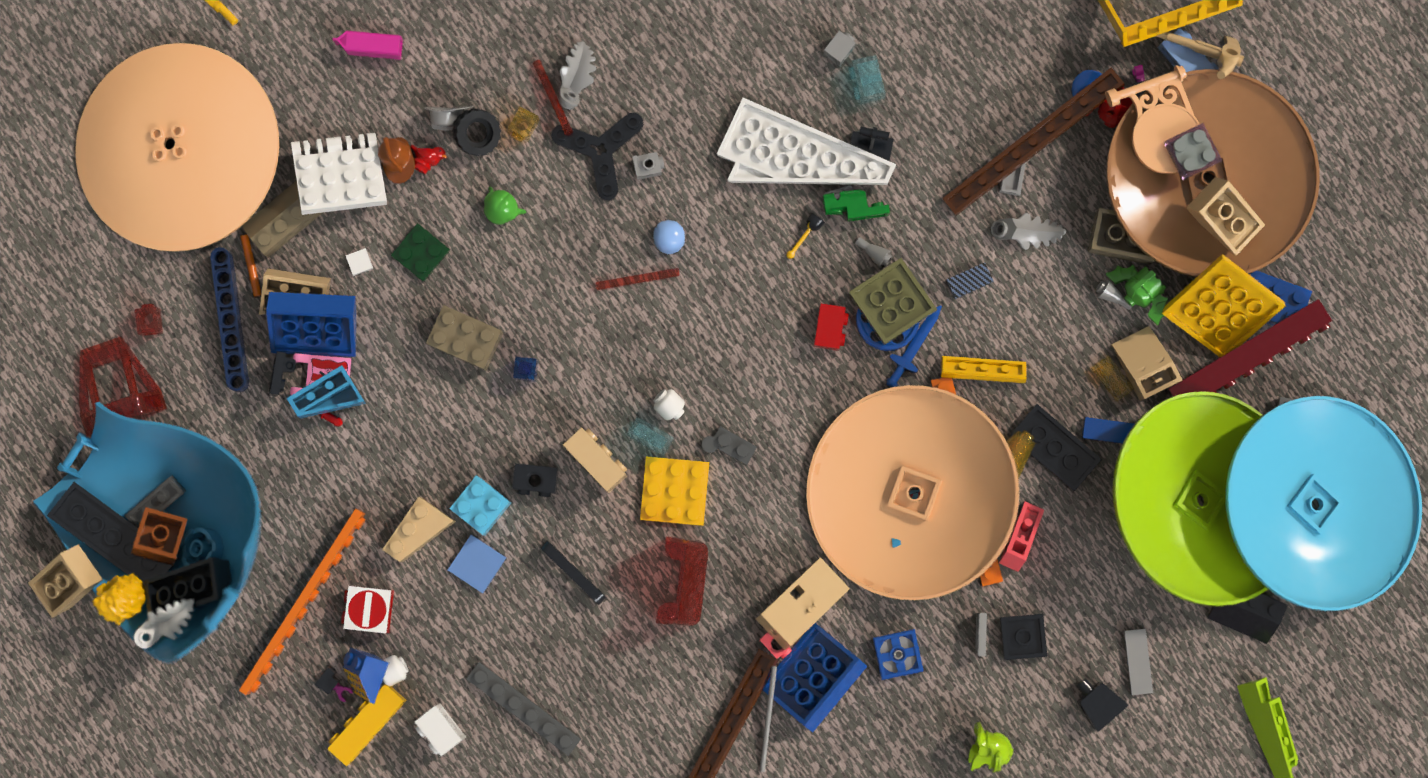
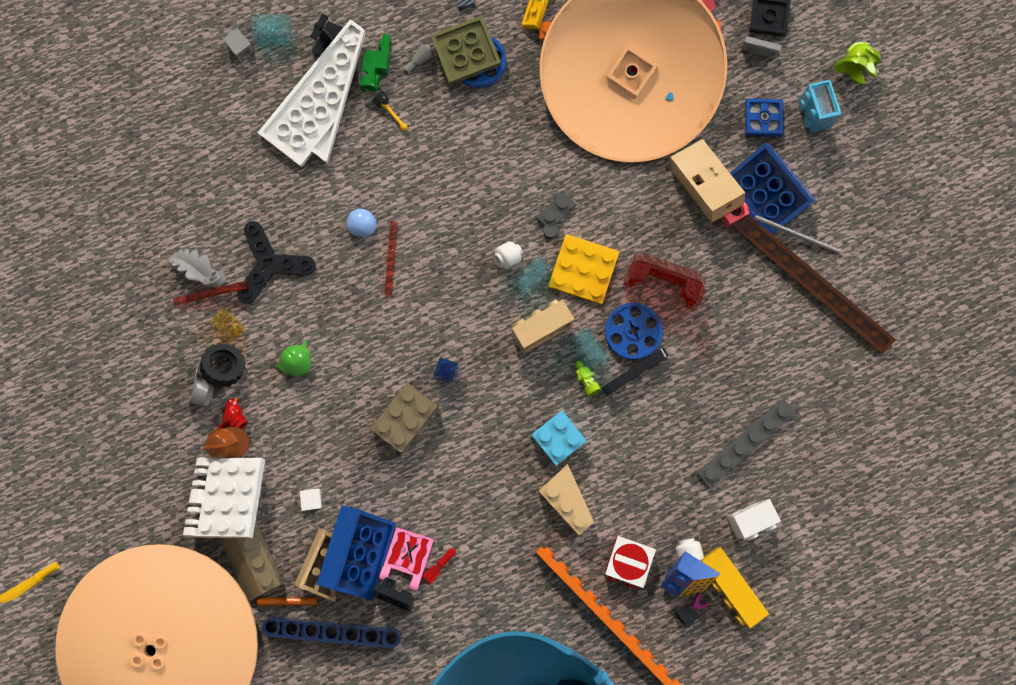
camera: 80 degrees left, 5 degrees down
(326, 394) = (425, 554): dark azure wedge -> none
(371, 44) = (115, 444): dark pink piece -> none
(420, 252) = (317, 442): dark green plate -> none
(477, 563) = (609, 455): medium blue tile -> none
(522, 478) = (546, 373): black brick -> none
(556, 518) = (585, 375): none -> lime piece
(586, 518) = (590, 347): none -> clear light blue brick
(618, 571) = (630, 339): none -> blue wedge
(646, 172) = (294, 231): light grey brick -> none
(830, 326) = (474, 107): red brick -> none
(904, 362) = (518, 56): blue sword -> none
(921, 713) = (819, 106): none -> medium azure piece

